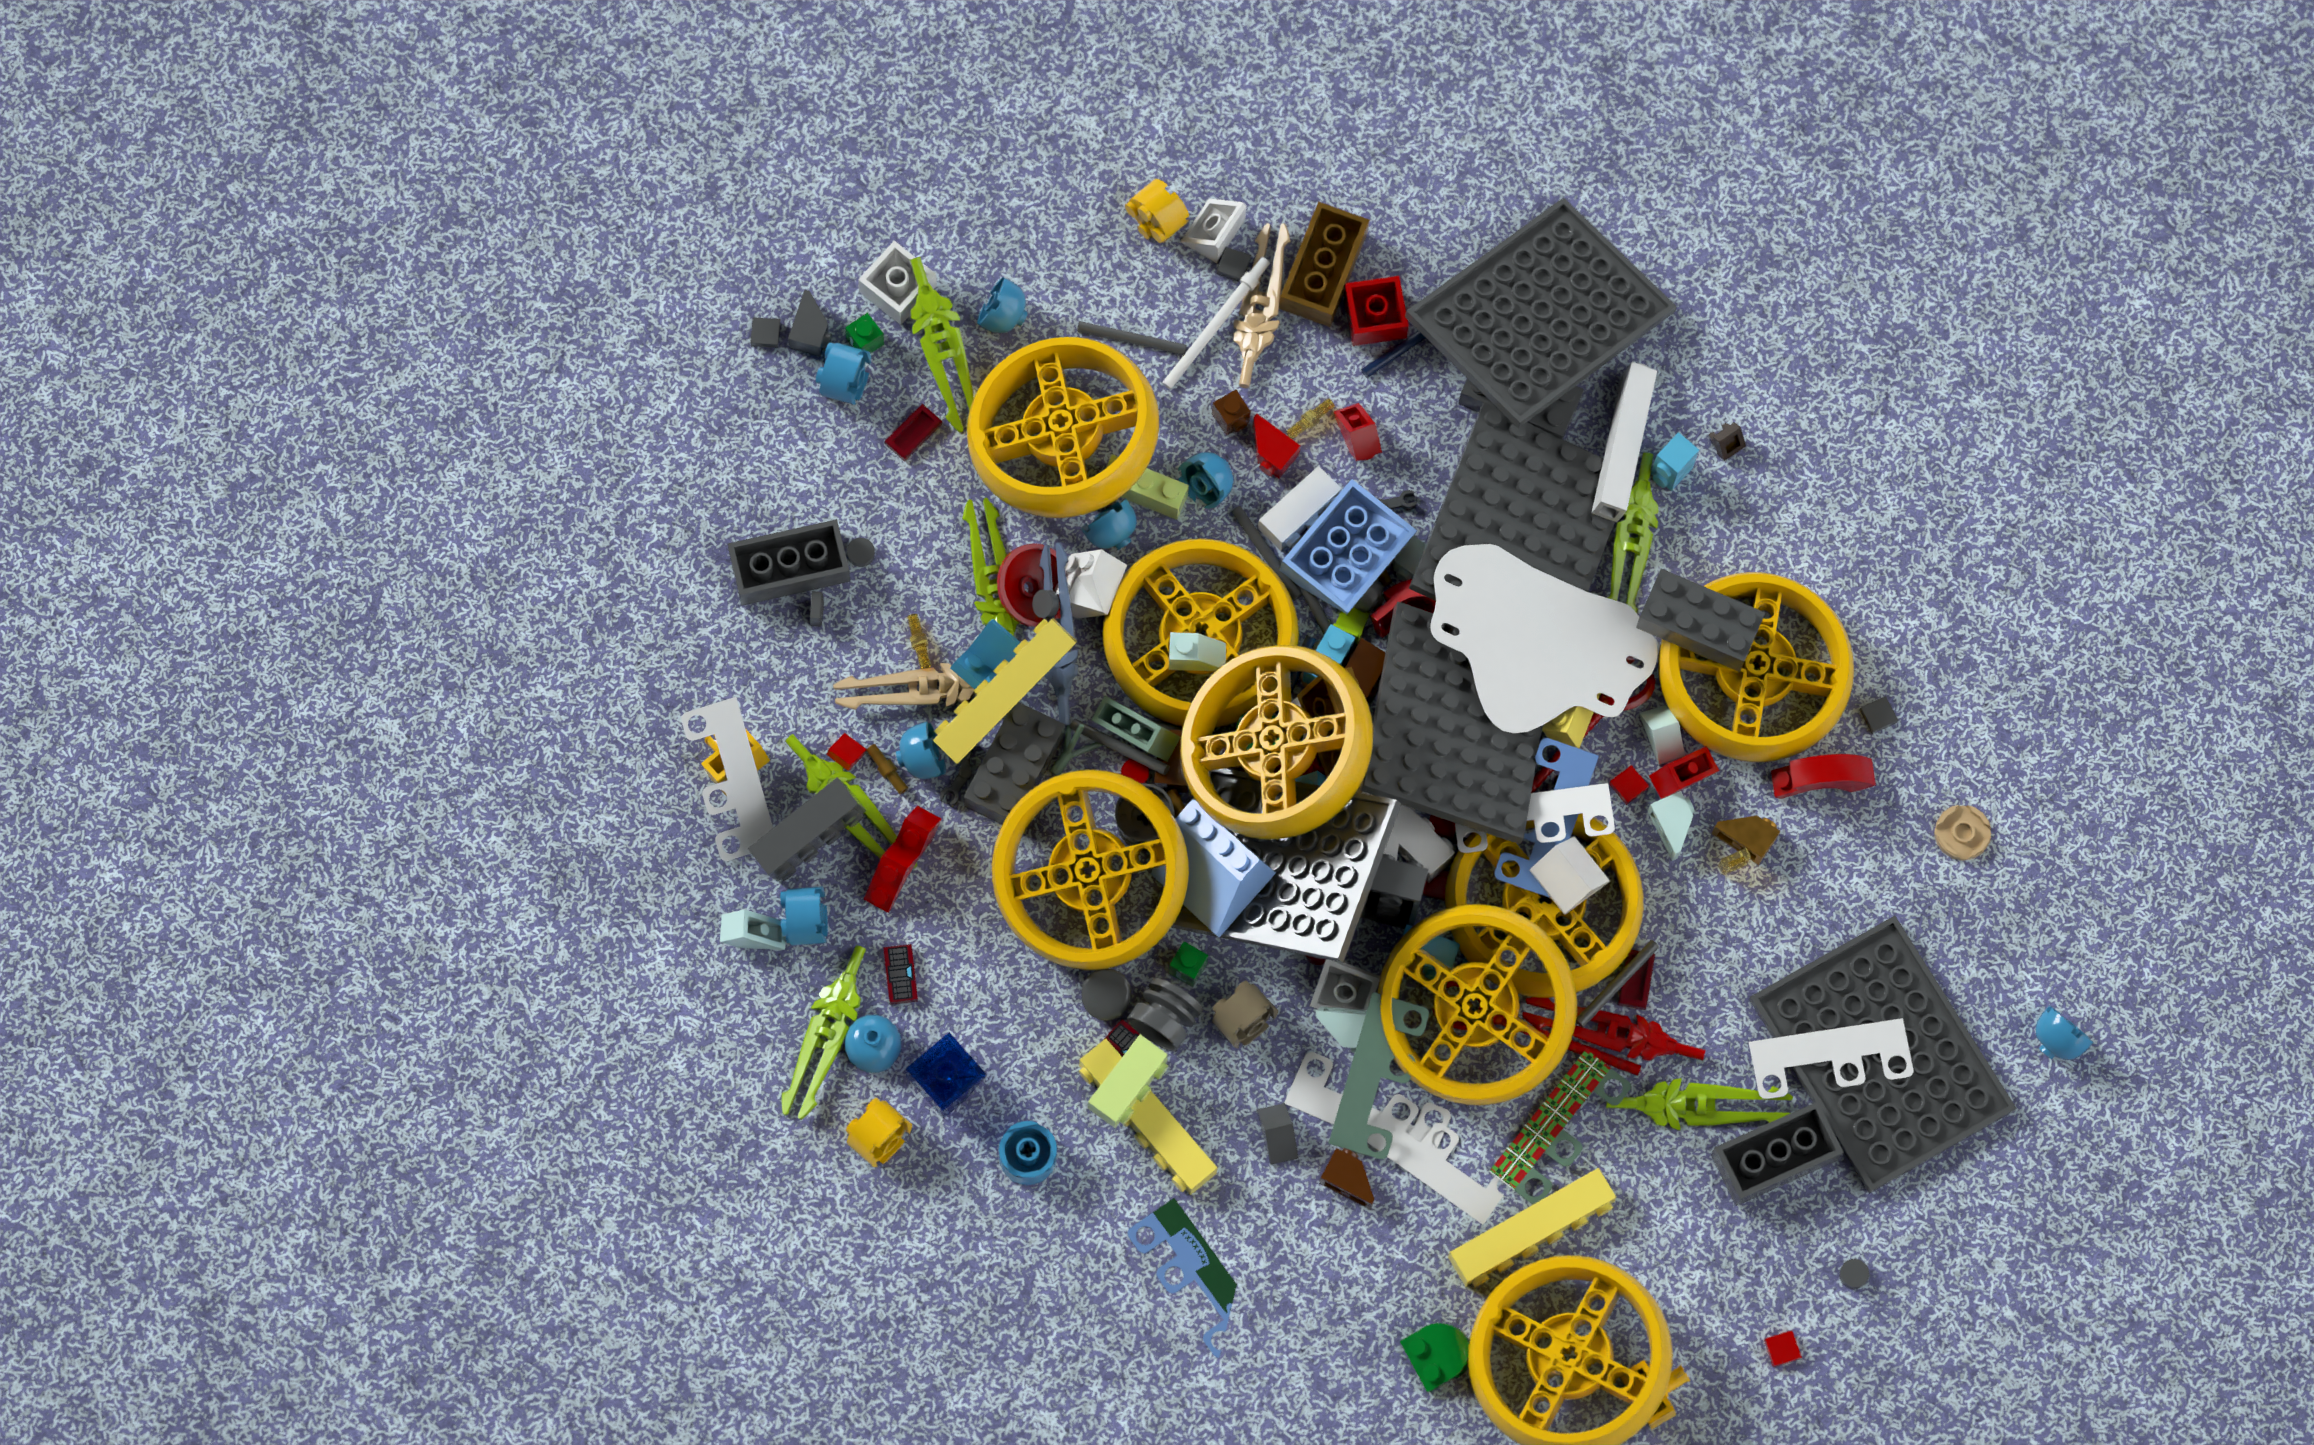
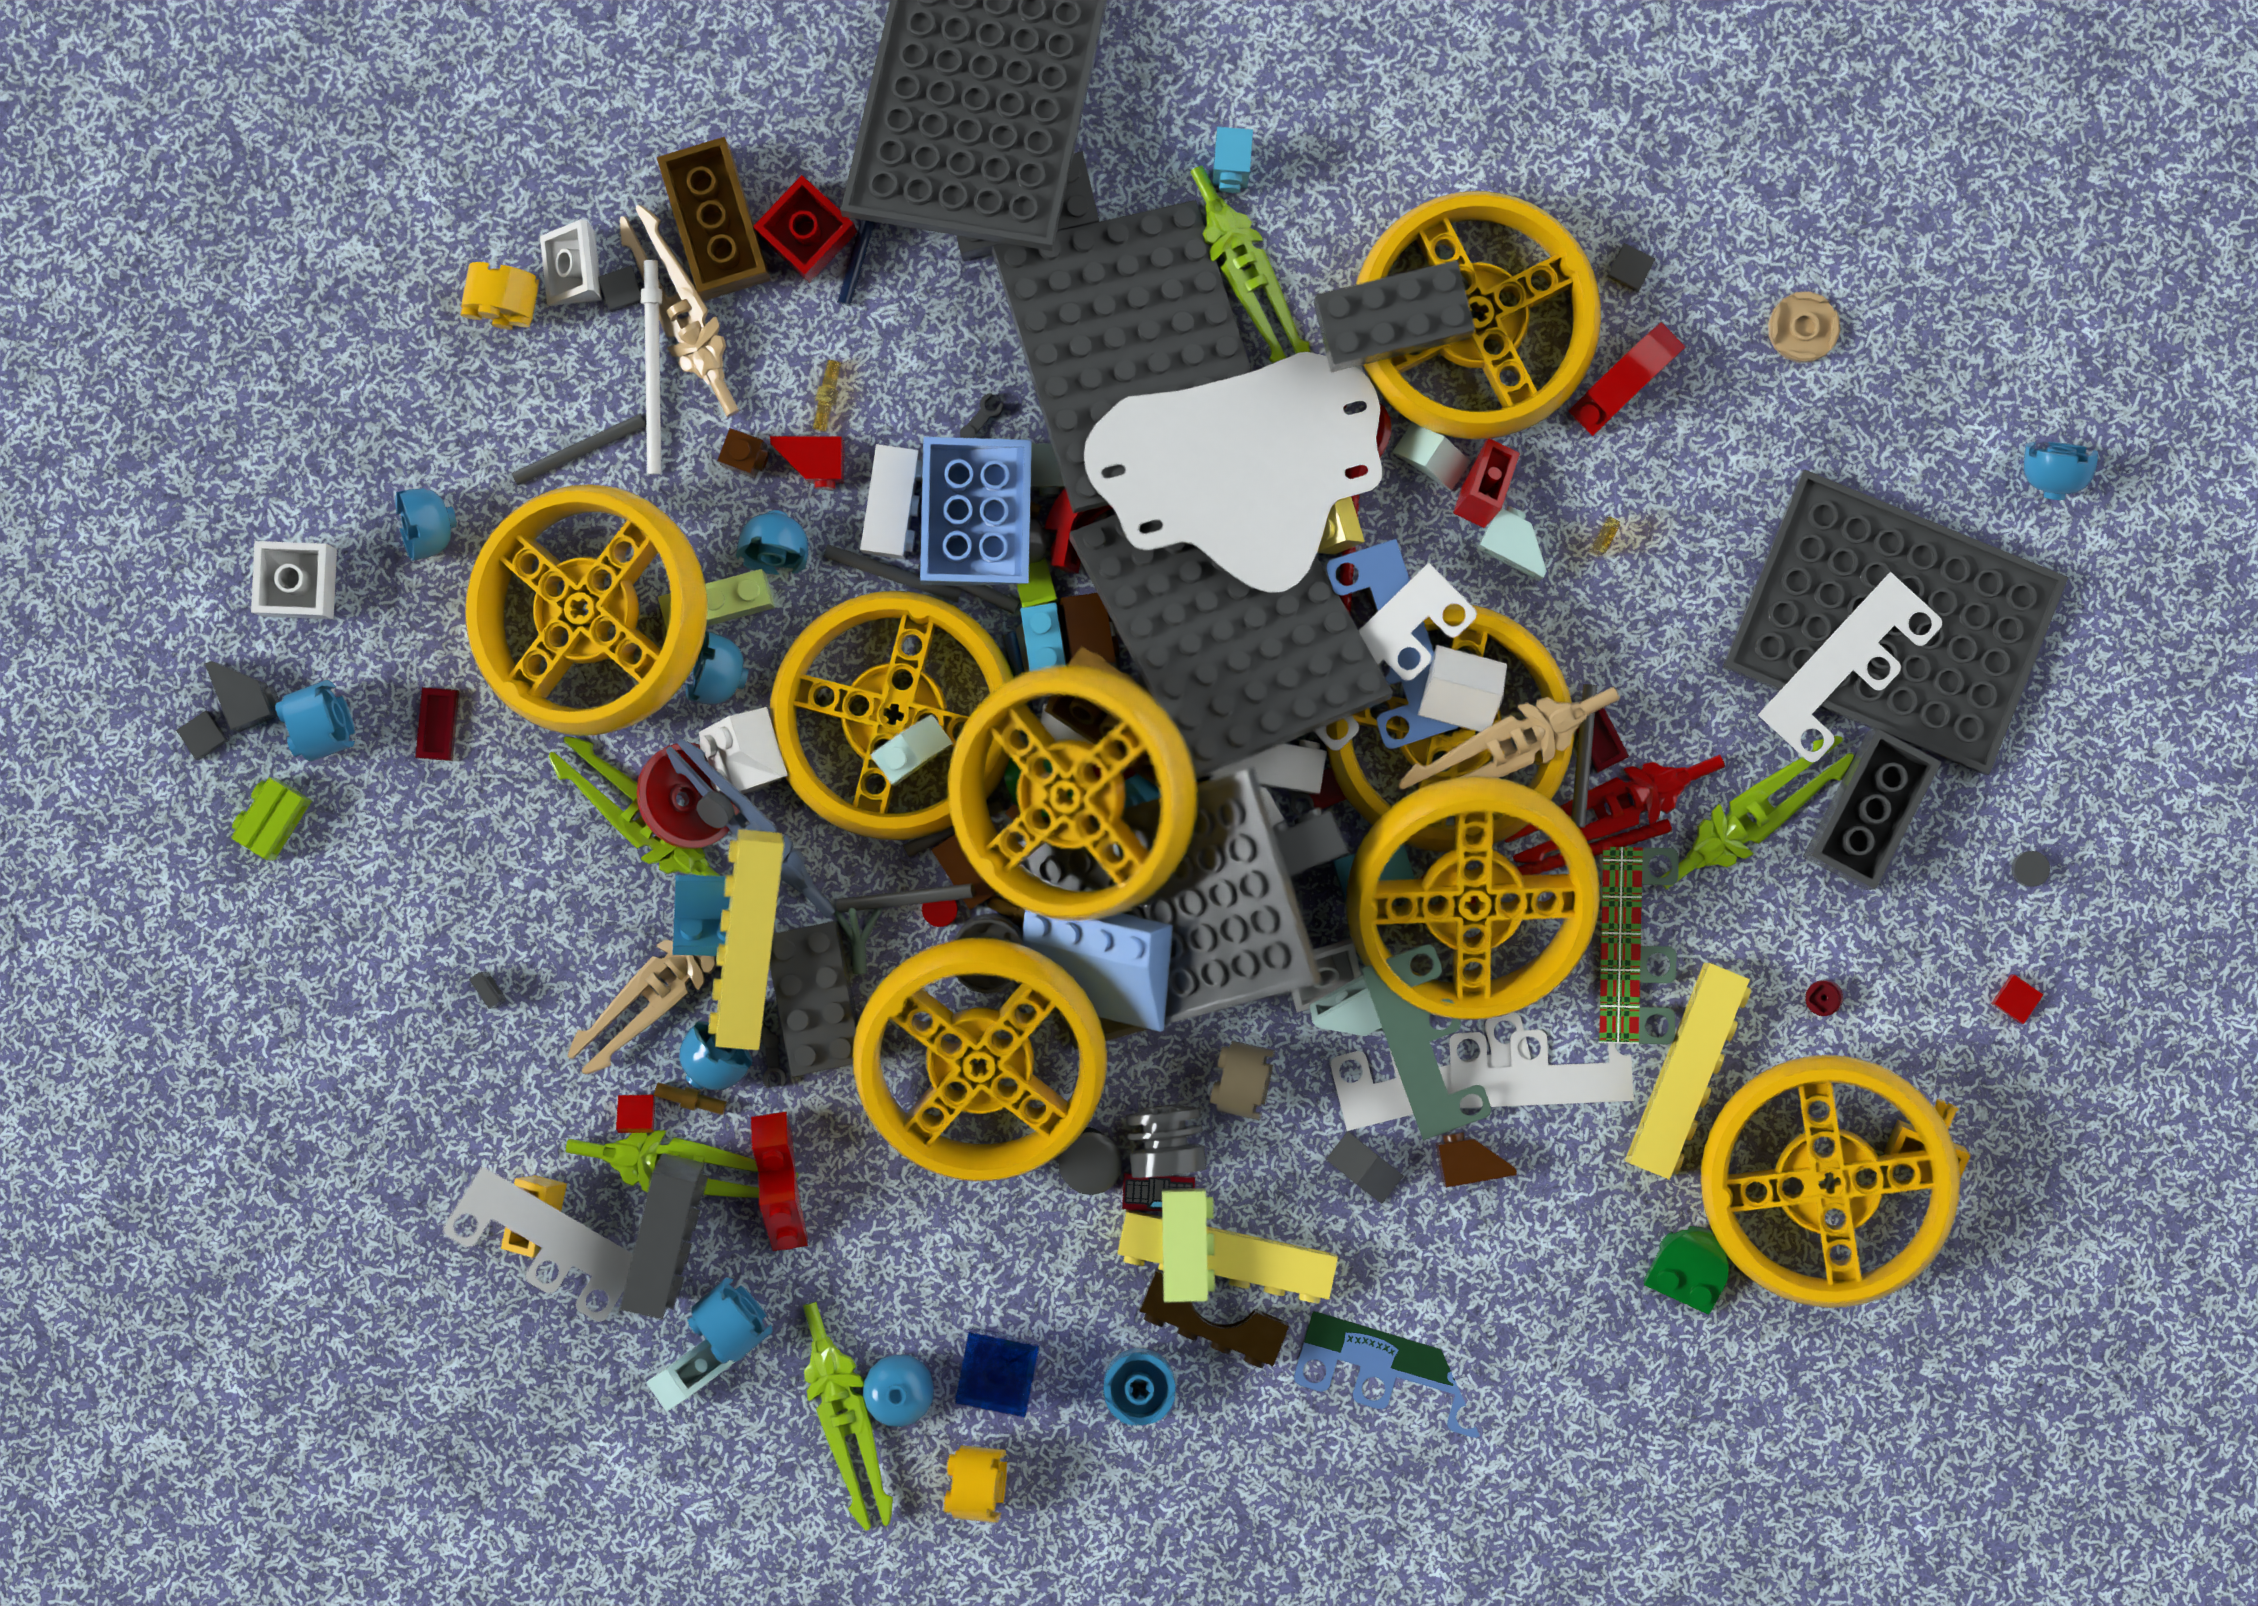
camera: 30 degrees left, 15 degrees up
(767, 409) = (270, 818): none -> lime brick
(789, 562) = (420, 965): dark grey brick -> none
(860, 552) = (484, 892): dark grey tile -> none
(864, 334) = (305, 662): green brick -> none
(900, 974) = (870, 1298): tile -> none
(919, 641) = (617, 941): clear yellow bar -> none
(933, 315) = (358, 590): lime sword -> none
(1126, 1180) = (1255, 1336): none -> dark brown arch
(1136, 728) = (909, 871): sand green brick -> none
(1188, 964) = (1147, 1069): green brick -> none
(1358, 432) = (886, 372): red slope -> none
(1603, 935) = (1545, 728): none -> tan sword
(1624, 442) = (1165, 176): white brick -> none
(1628, 785) = (1438, 536): red tile -> none
(1656, 1251) = (1824, 997): none -> dark red tile
(1728, 441) = (1266, 91): dark brown tile -> none
(1749, 833) = (1601, 496): pearl gold slope -> none

